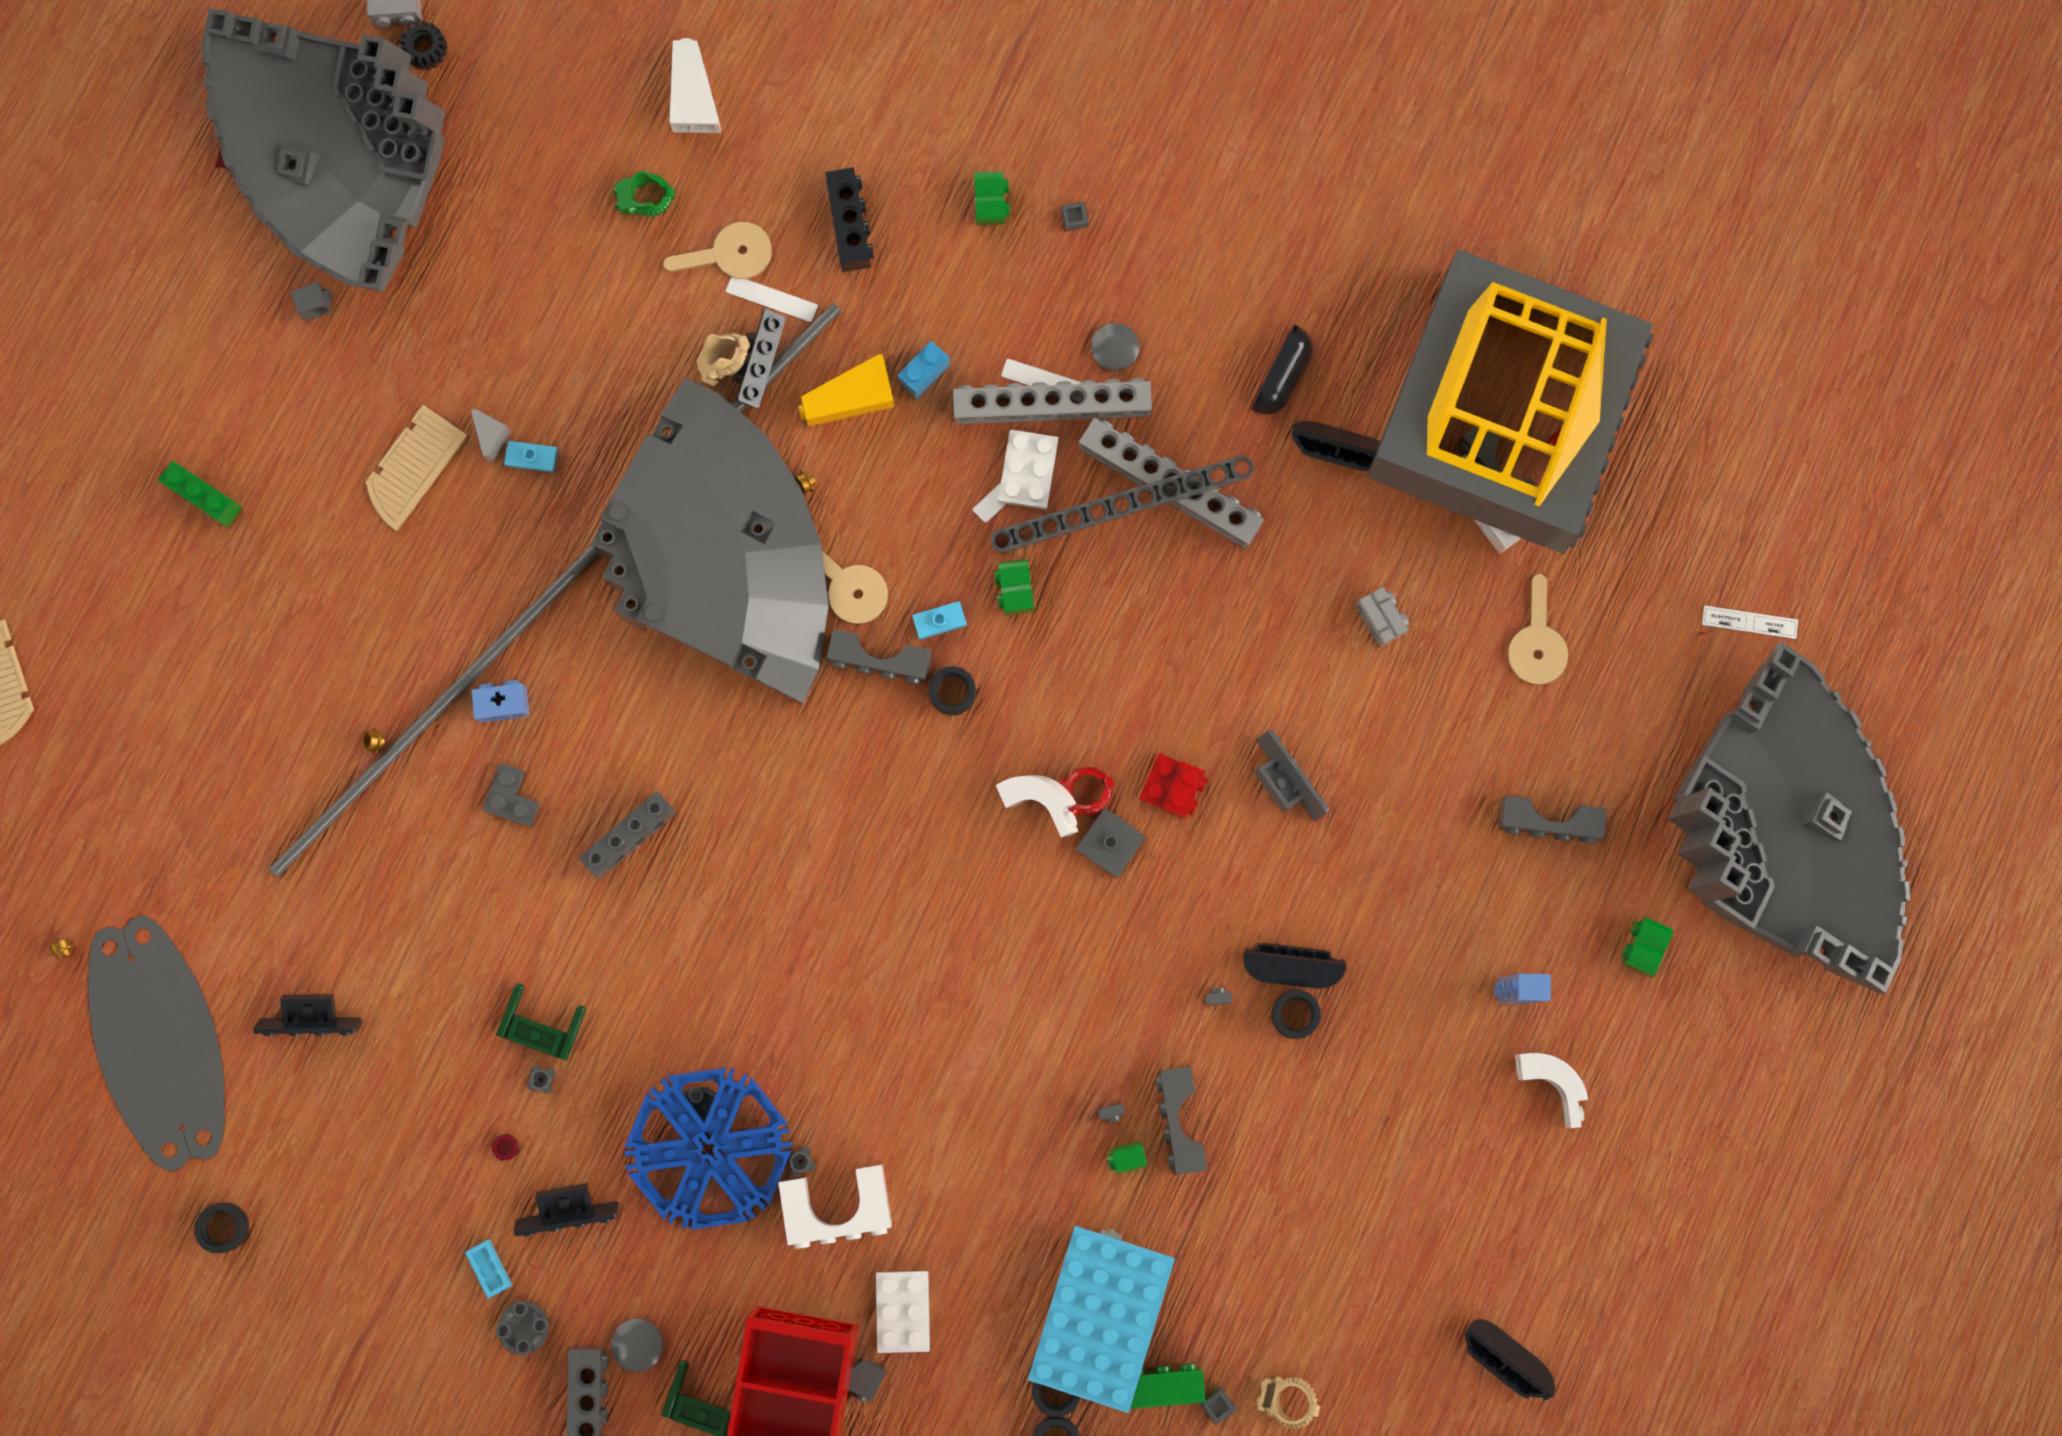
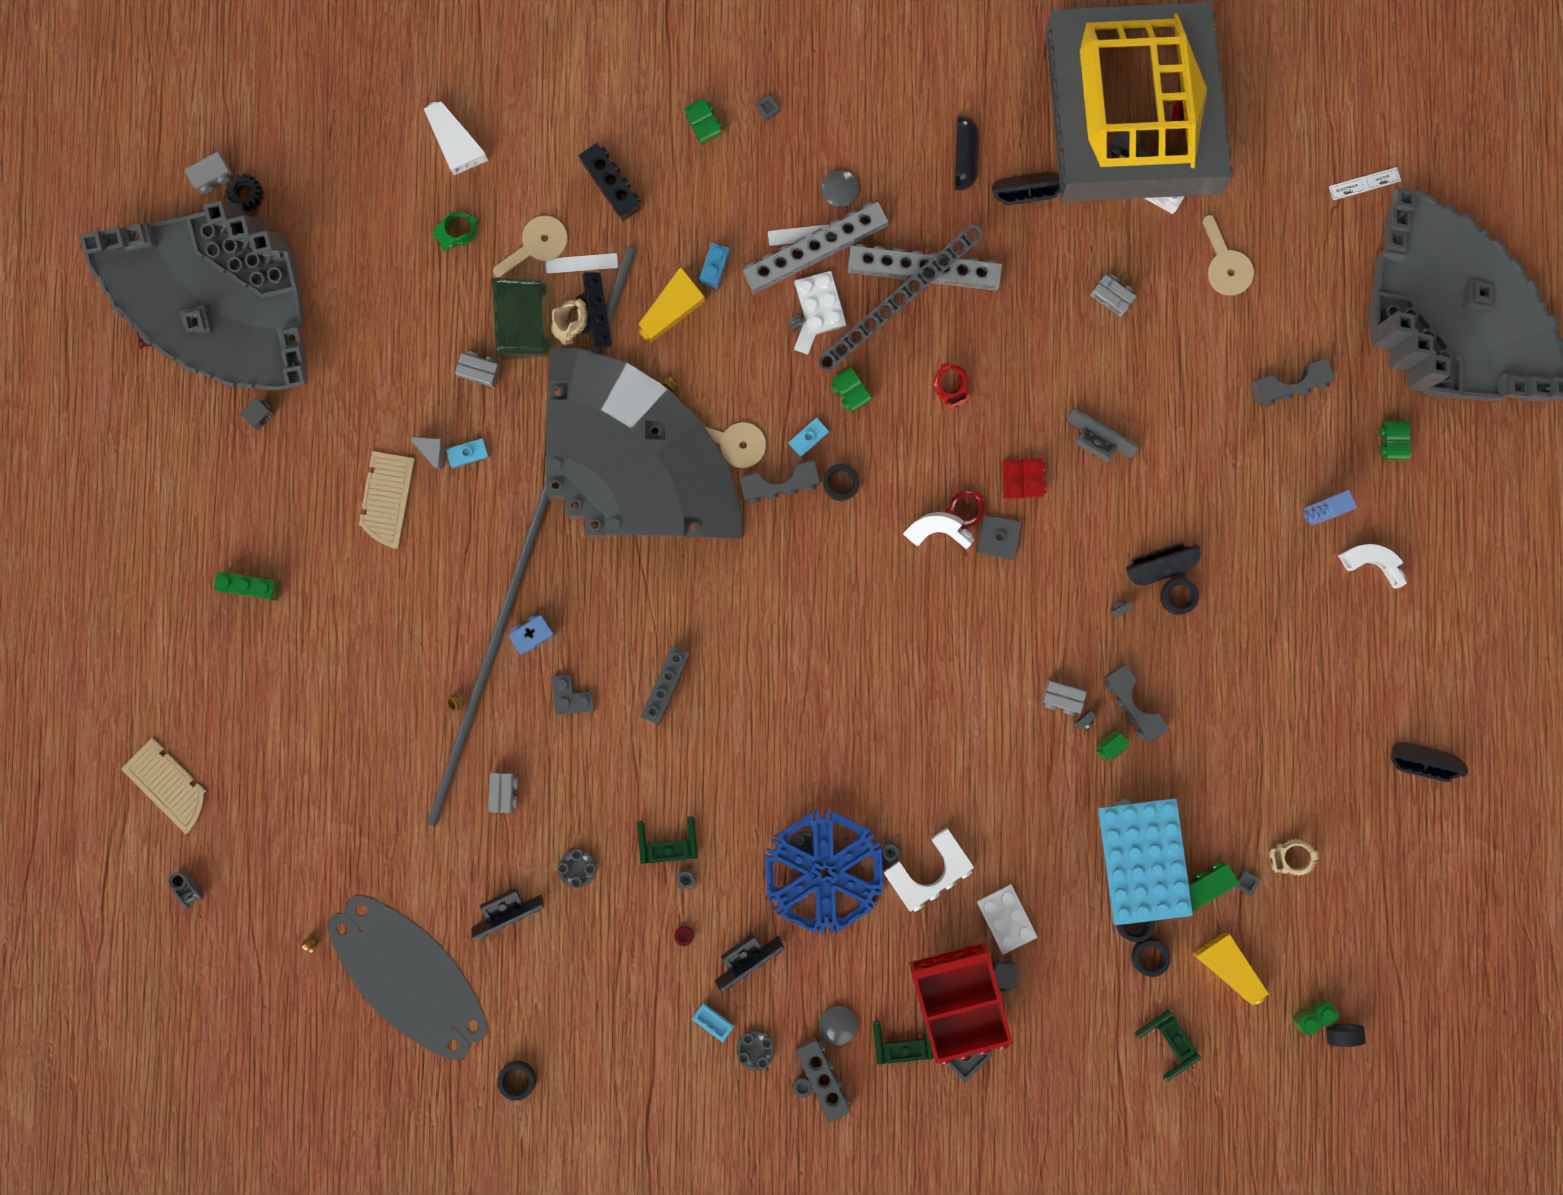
camera: 25 degrees left, 5 degrees up
(375, 873) = (502, 792): none -> light grey brick
(418, 1005) = (577, 868): none -> dark grey dish
(556, 1400) = (802, 1087): none -> dark grey tile
(589, 365) = (477, 369): none -> light grey brick
(665, 327) = (519, 318): none -> clear green windscreen
(988, 478) = (796, 322): none -> dark grey bush
(1097, 1071) = (1063, 697): none -> light grey brick
(1139, 653) = (958, 396): none -> red piece

